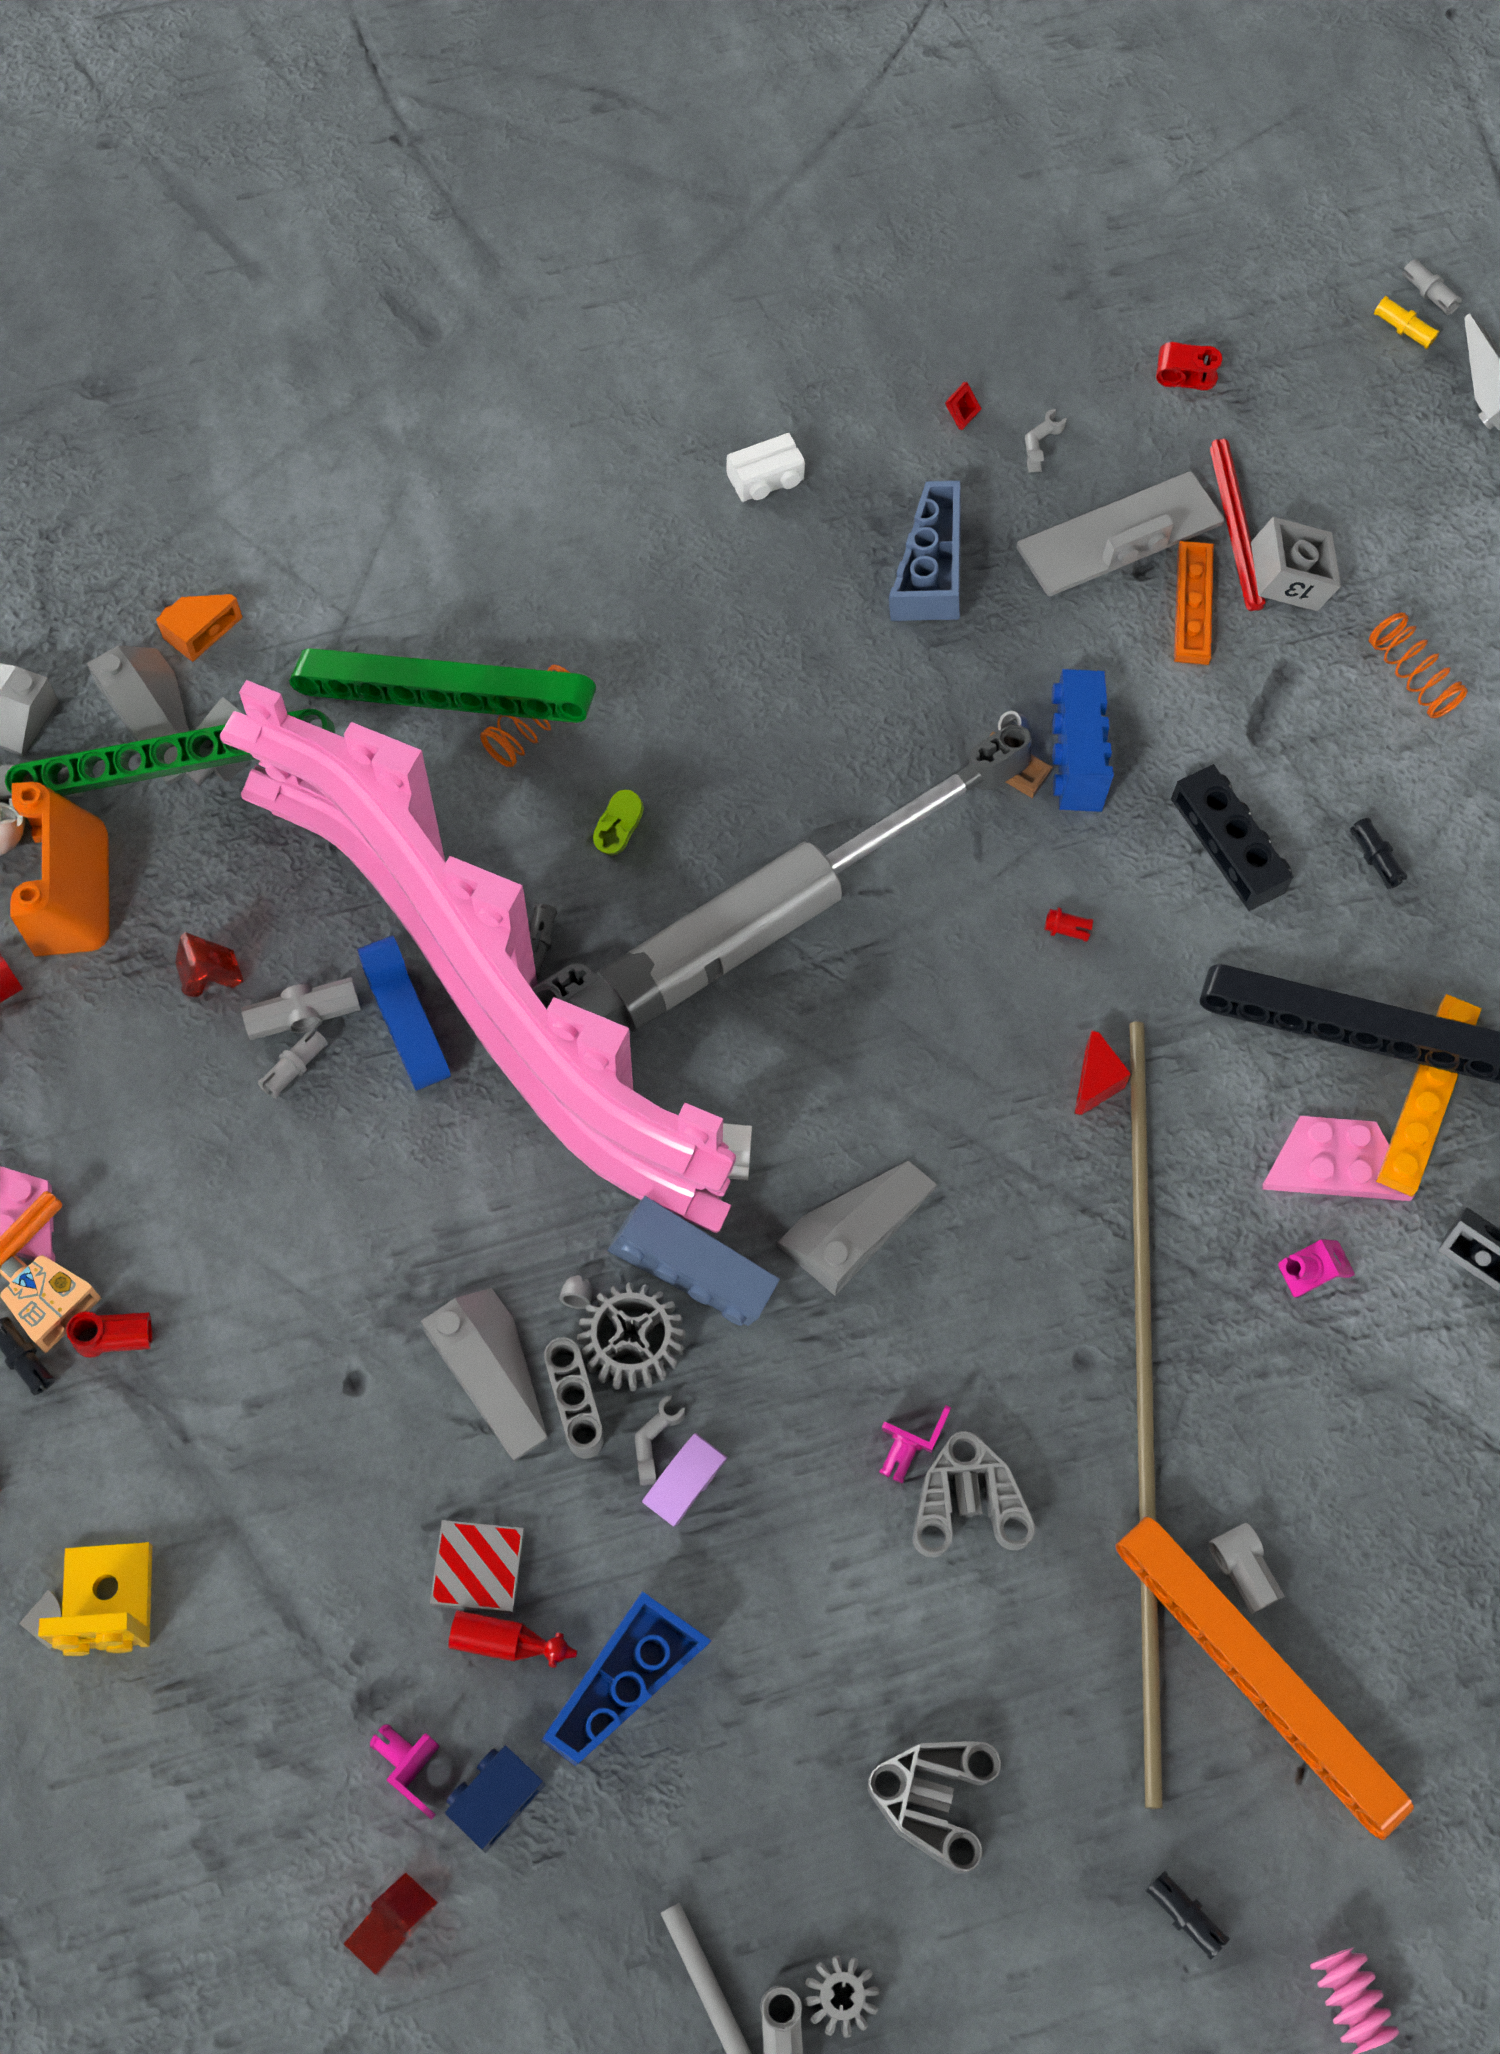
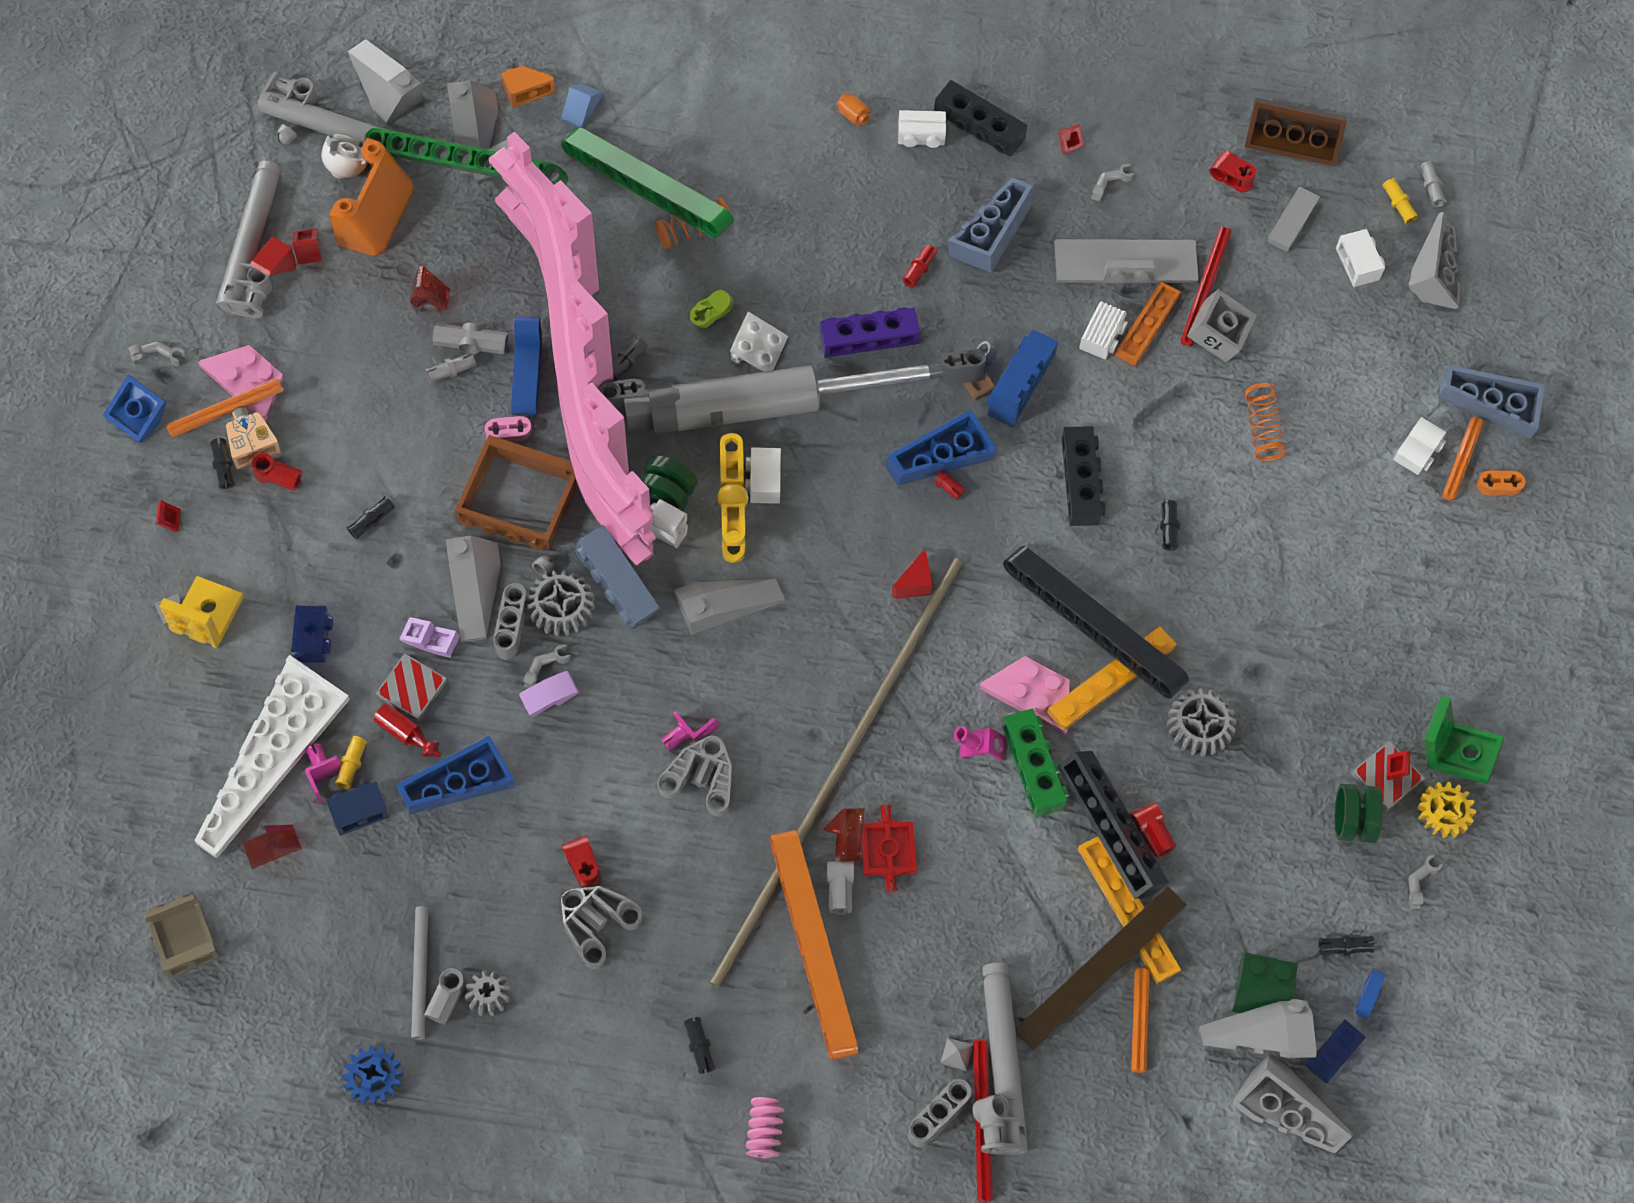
camera: 25 degrees right, 0 degrees up
(270, 1539) = (304, 645): none -> clear blue brick
(286, 1336) = (370, 518): none -> black pin
(288, 620) = (580, 104): none -> medium blue slope
(321, 1725) = (289, 723): none -> white wing
(421, 1115) = (509, 428): none -> bright pink beam
(447, 1730) = (350, 763): none -> yellow pin
(465, 1477) = (429, 638): none -> lavender slope
(479, 1144) = (526, 457): none -> dark orange window
(663, 478) = (853, 109): none -> orange brick
(698, 1082) = (668, 481): none -> dark green wheel
(707, 844) = (758, 343): none -> white hinge
(796, 1074) = (732, 497): none -> yellow piece
(810, 798) = (861, 341): none -> dark purple brick
(817, 1022) = (765, 475): none -> white brick
(835, 424) = (991, 118): none -> black brick
(862, 649) = (919, 266): none -> red axle
(862, 1708) = (581, 859): none -> red piece
(1041, 876) = (946, 448): none -> blue wedge
(1147, 634) = (1103, 330): none -> white brick
(1219, 1480) = (849, 831): none -> clear red slope
(1233, 287) = (1295, 132): none -> reddish brown slope
(1279, 1479) = (888, 848): none -> red plate
(1291, 397) = (1293, 219): none -> light grey tile
(1403, 410) = (1360, 257): none -> white brick
(1404, 1281) = (1041, 800): none -> green brick

